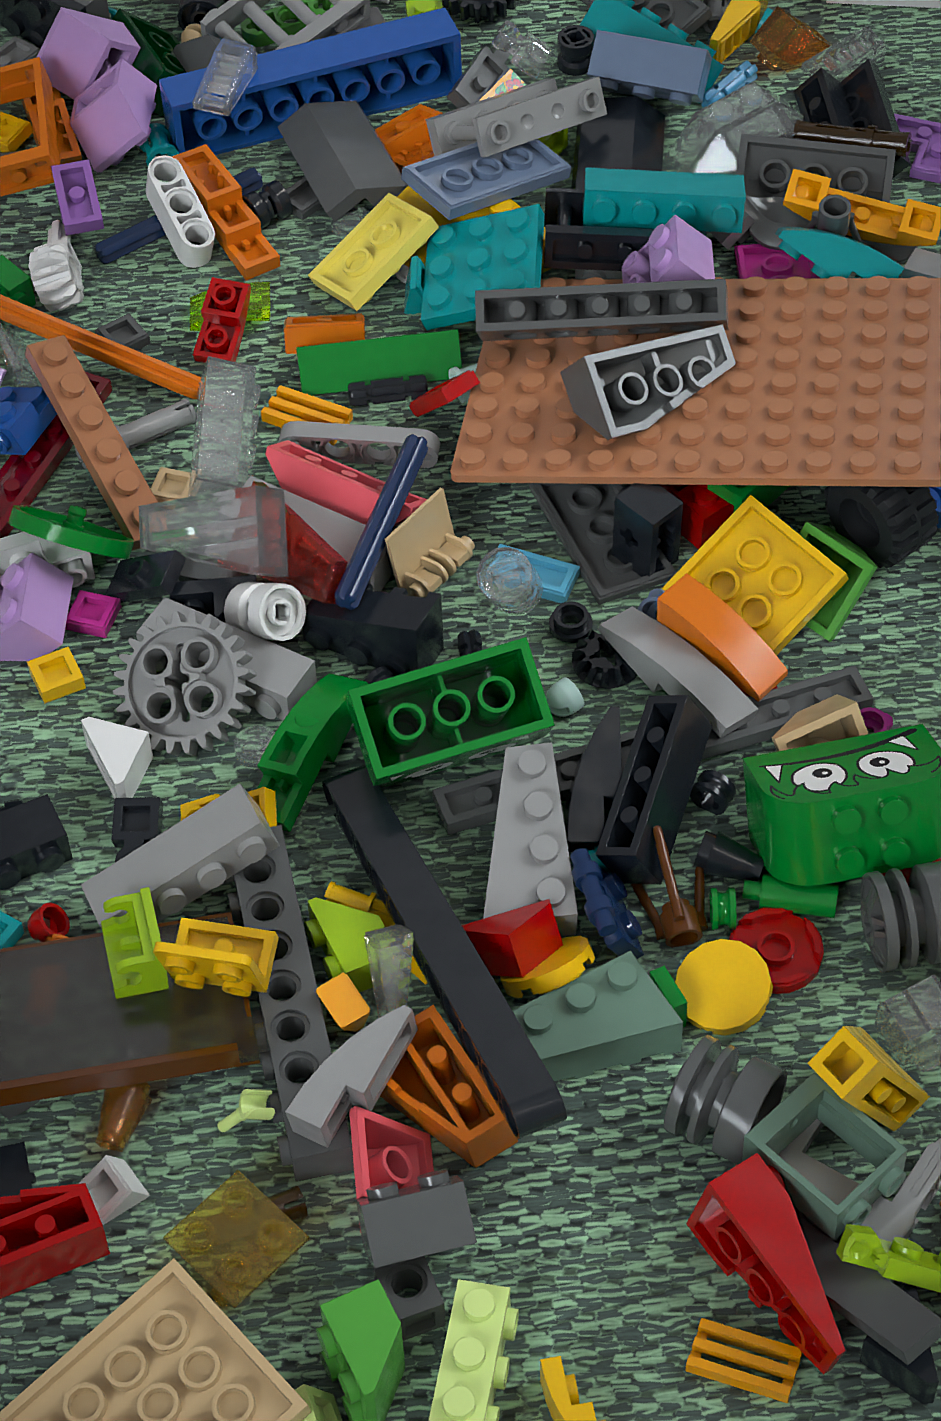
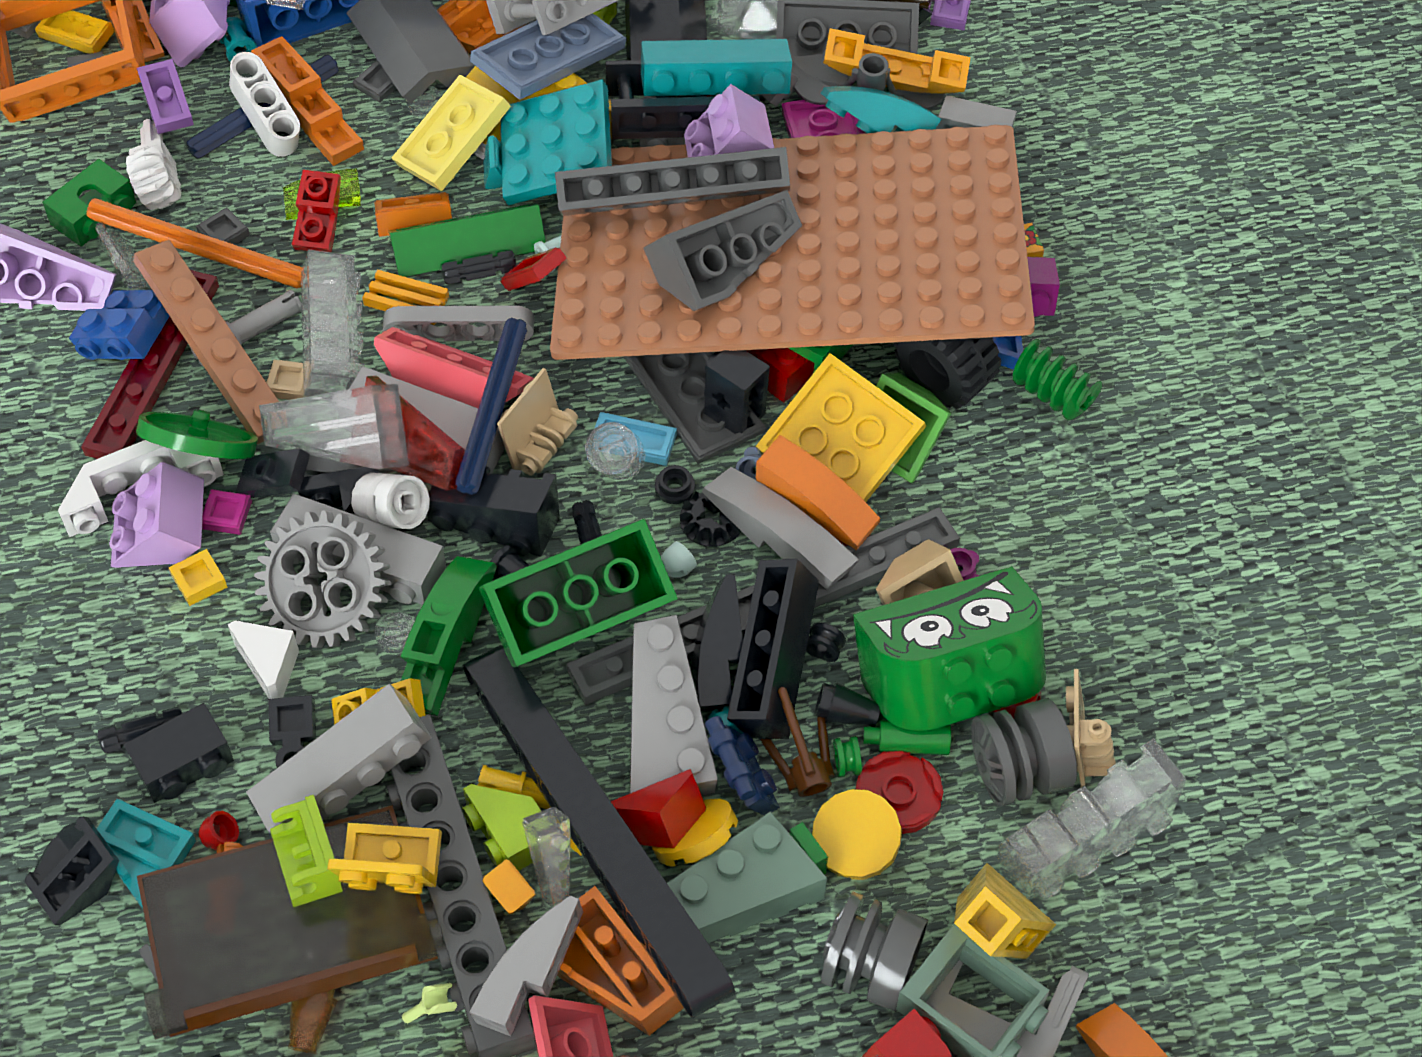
camera: 10 degrees left, 5 degrees up
(269, 203) = (347, 89): black wheel -> none

